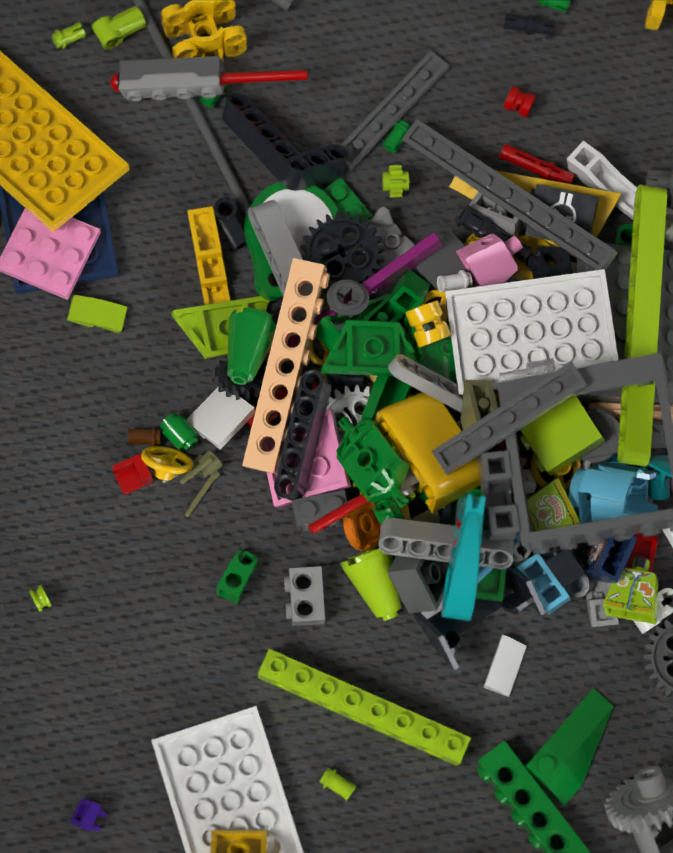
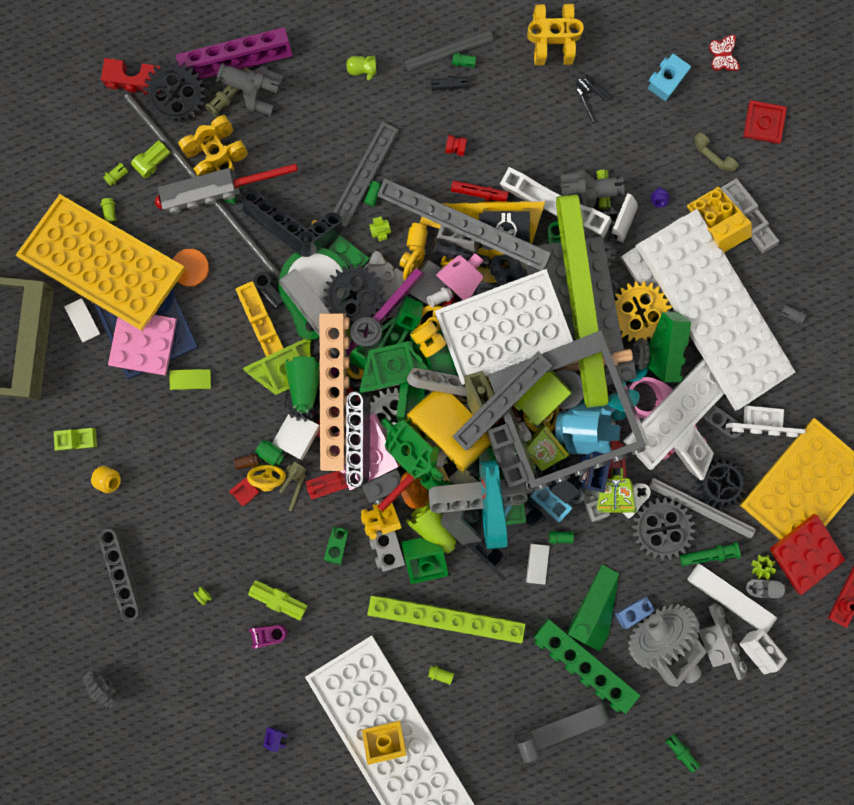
camera: 10 degrees left, 10 degrees up
(47, 76) = (108, 210): none -> lime pin
(112, 672) = (264, 635): none -> magenta piece
(140, 627) = (277, 600): none -> lime piece
(142, 174) = (195, 267): none -> orange tile
(244, 492) = (326, 484): none -> red hinge
(309, 550) = (386, 522): none -> yellow plate
(352, 623) = (424, 560): none -> green slope
(424, 227) = (411, 262): none -> yellow piece
(441, 203) = (417, 236): none -> yellow brick
(544, 637) = (560, 537): none -> green pin
(623, 762) = (634, 612): none -> medium blue leg

